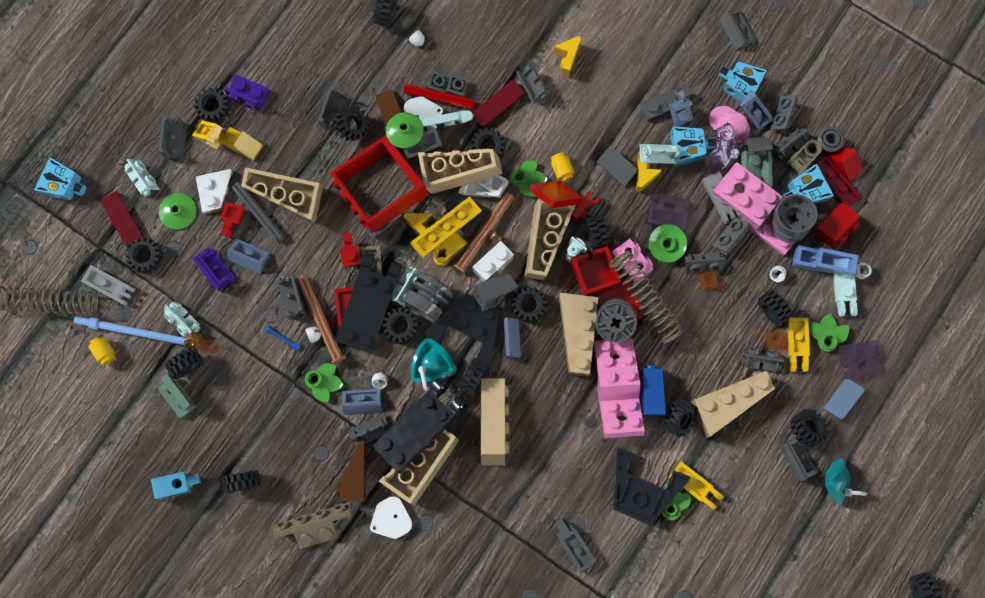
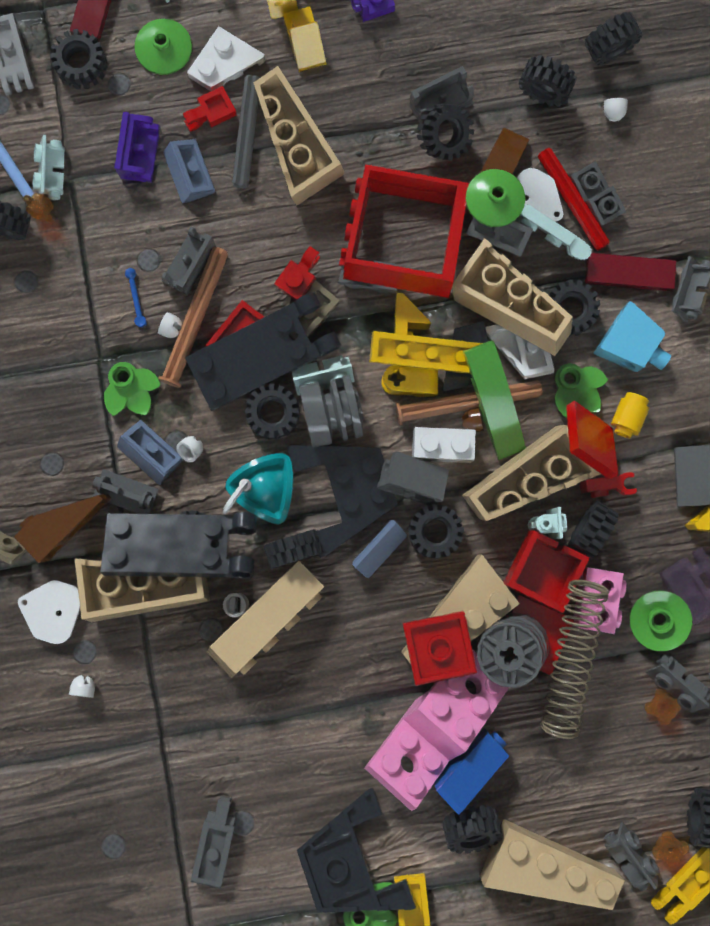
camera: 40 degrees right, 5 degrees up
(374, 56) = (547, 81): none -> black tyre
(441, 538) = (82, 687): none -> white hinge
(470, 431) = (230, 605): none -> white hinge
(496, 219) = (495, 399): none -> bright green slope
(530, 133) = (633, 341): none -> medium azure torso
(583, 351) = (439, 648): none -> red tile

